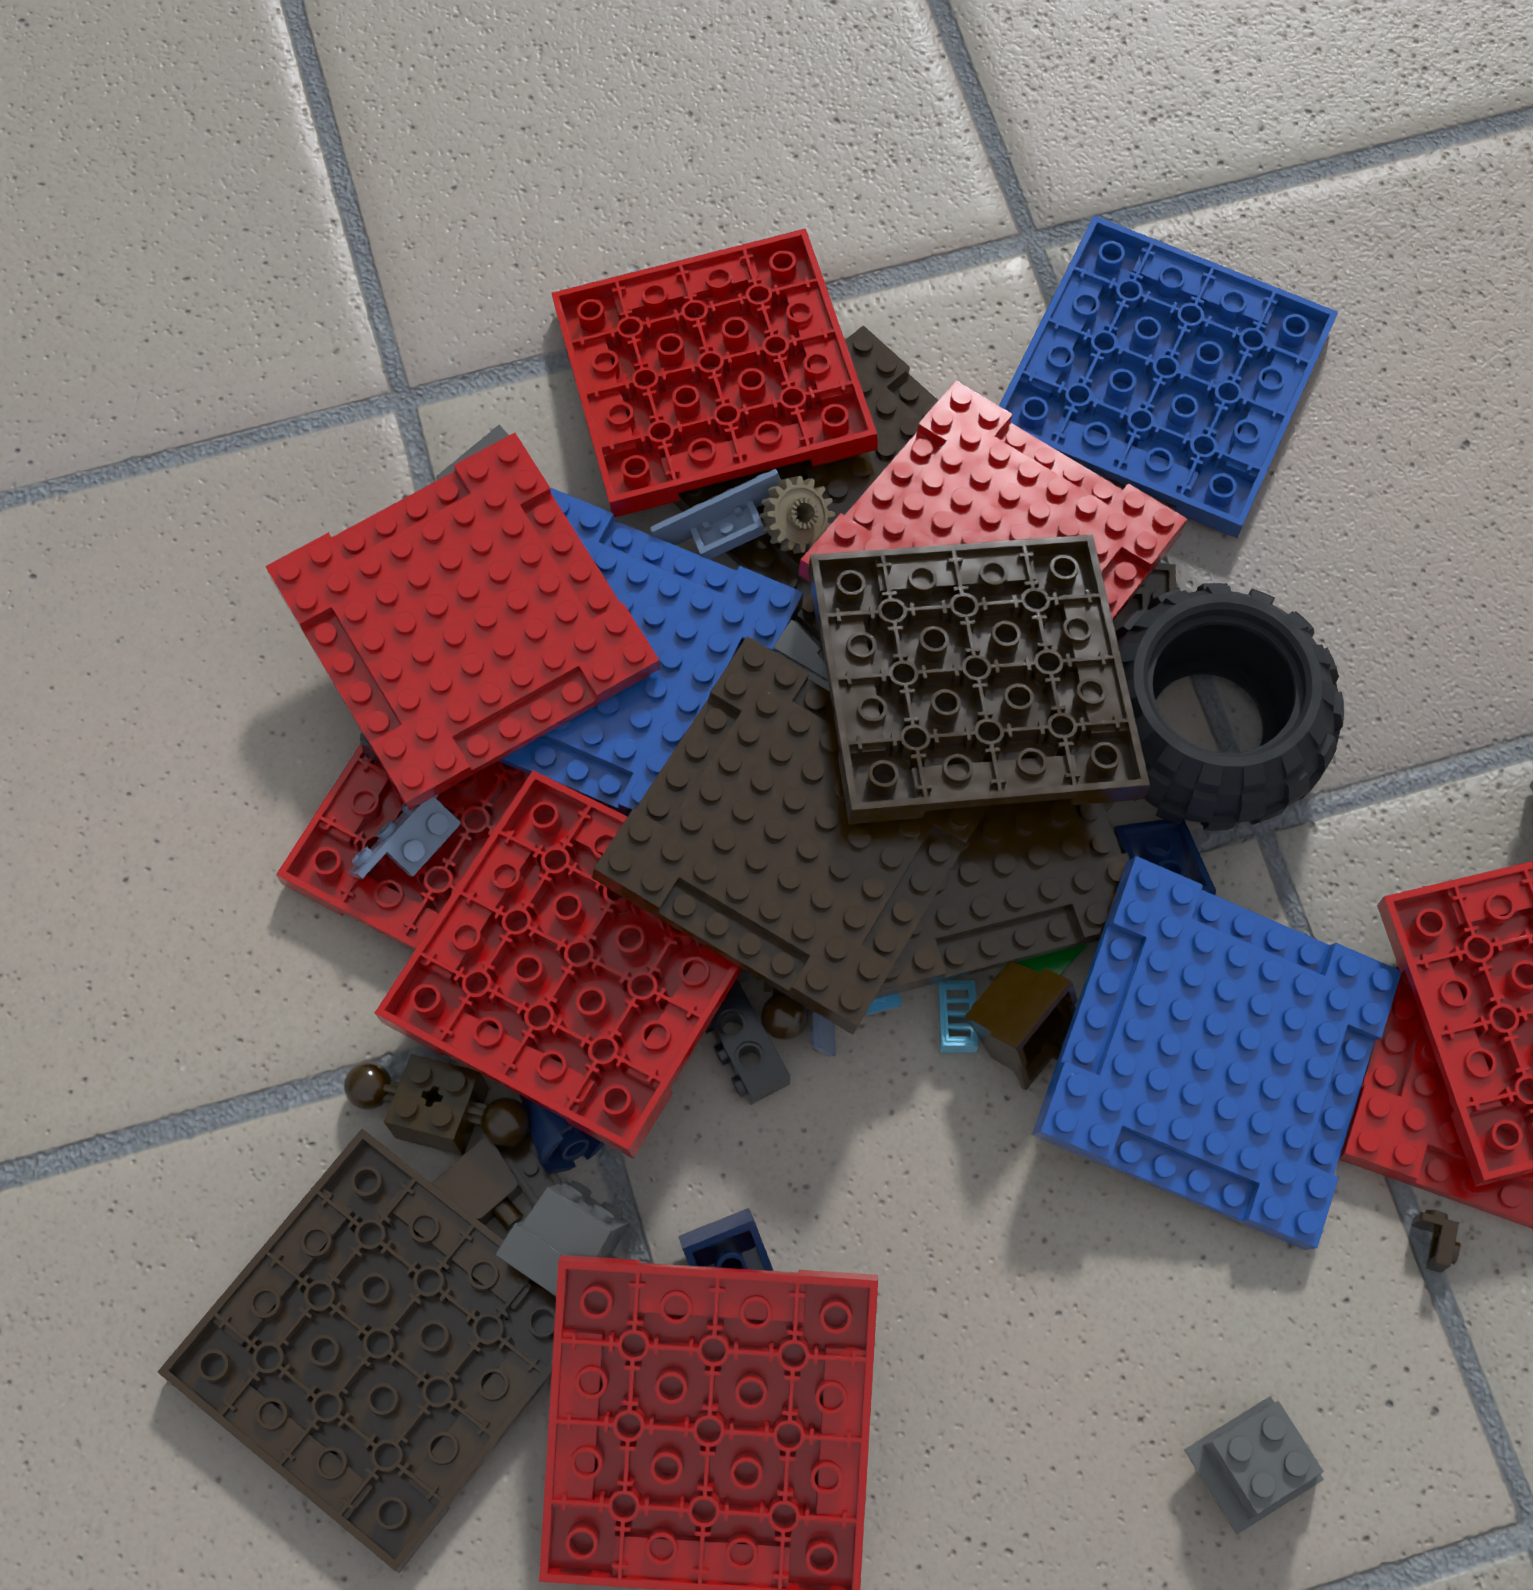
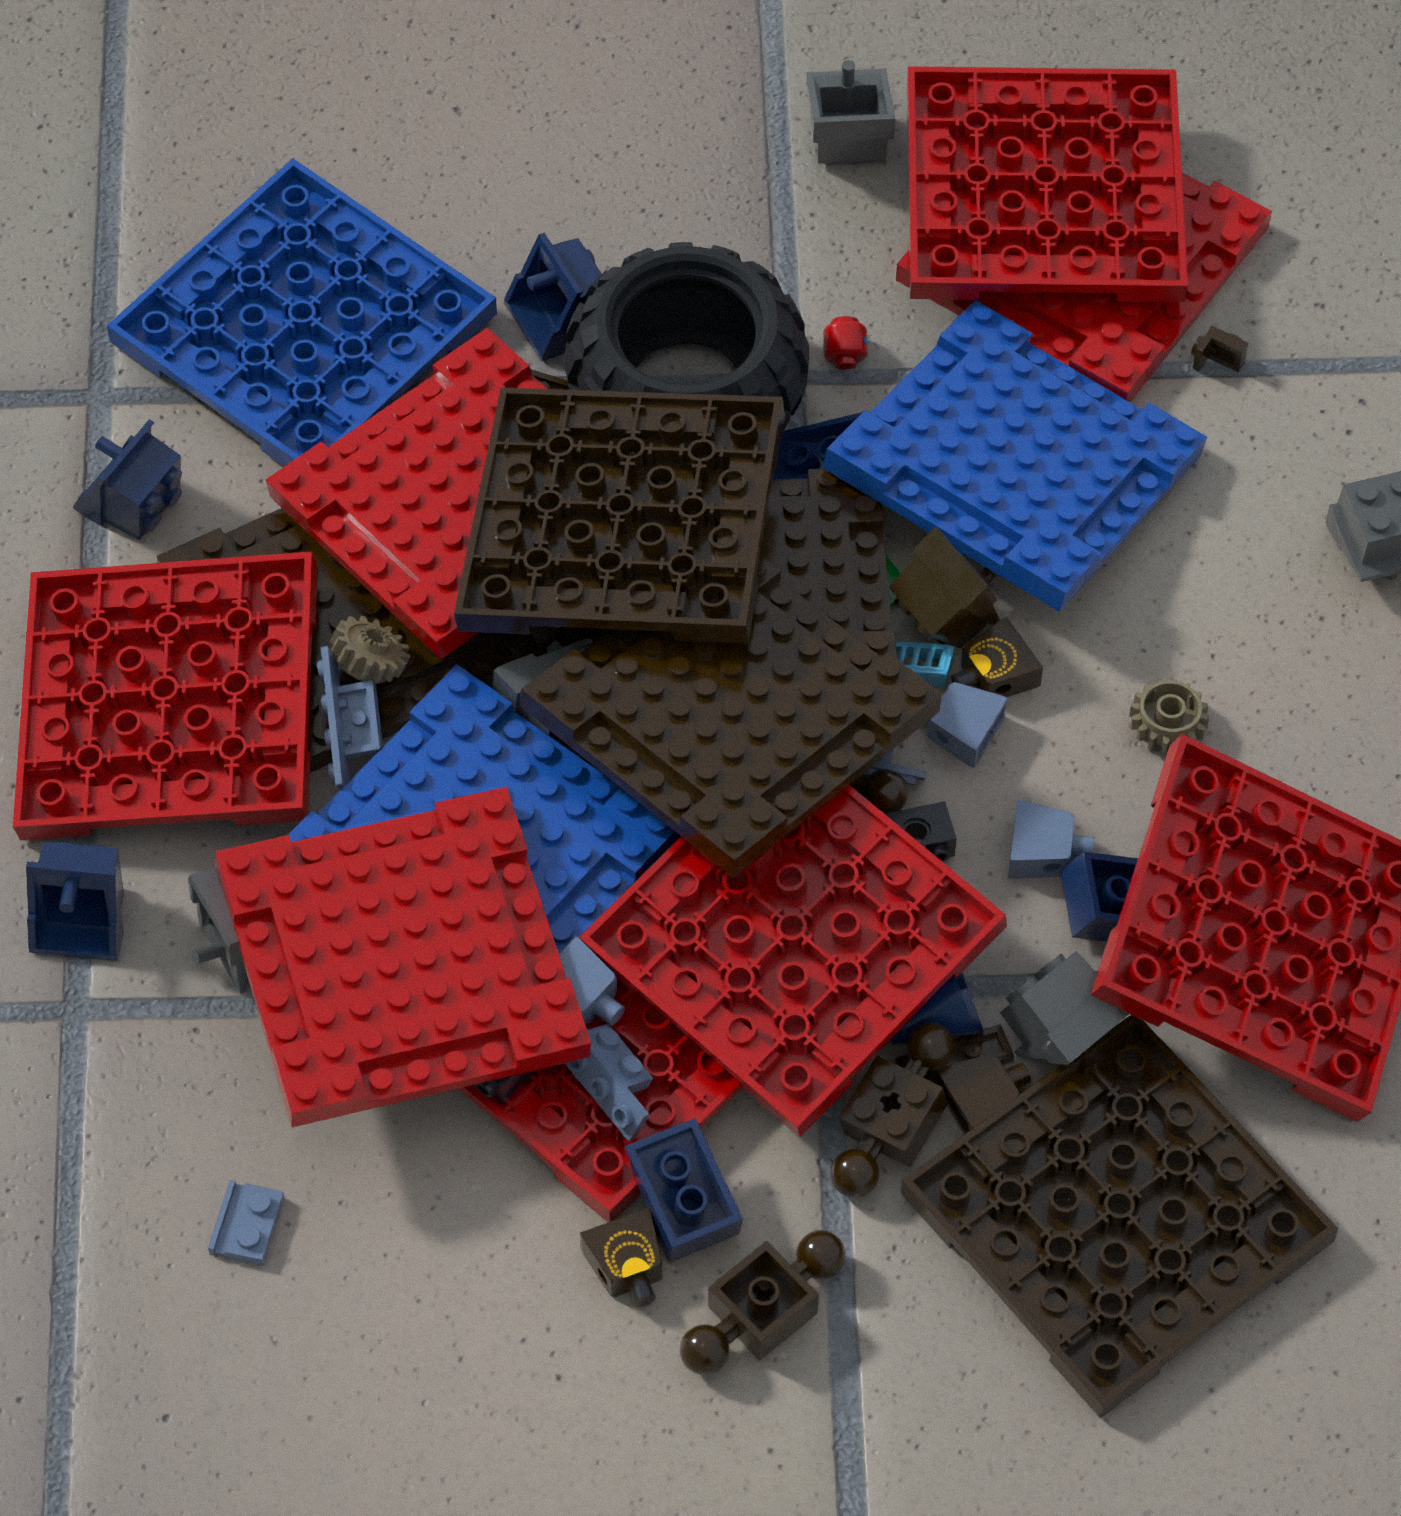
camera: 75 degrees left, 10 degrees down
(222, 586) = (246, 1223): none -> sand blue plate
(236, 1045) = (782, 1307): none -> dark brown brick
(243, 904) = (625, 1256): none -> dark brown torso
(307, 933) = (683, 1190): none -> dark blue slope
(489, 792) = (592, 983): none -> sand blue torso
(490, 361) = (75, 901): none -> dark blue piece
(779, 1185) = (1043, 841): none -> sand blue torso
(898, 1075) = (967, 721): none -> sand blue torso
(931, 284) = (134, 484): none -> dark blue piece
(948, 1294) = (1167, 712): none -> dark tan gear
(974, 1093) = (999, 662): none -> dark brown torso
(1275, 568) = (550, 291): none -> dark blue piece
(1311, 860) = (845, 342): none -> red head

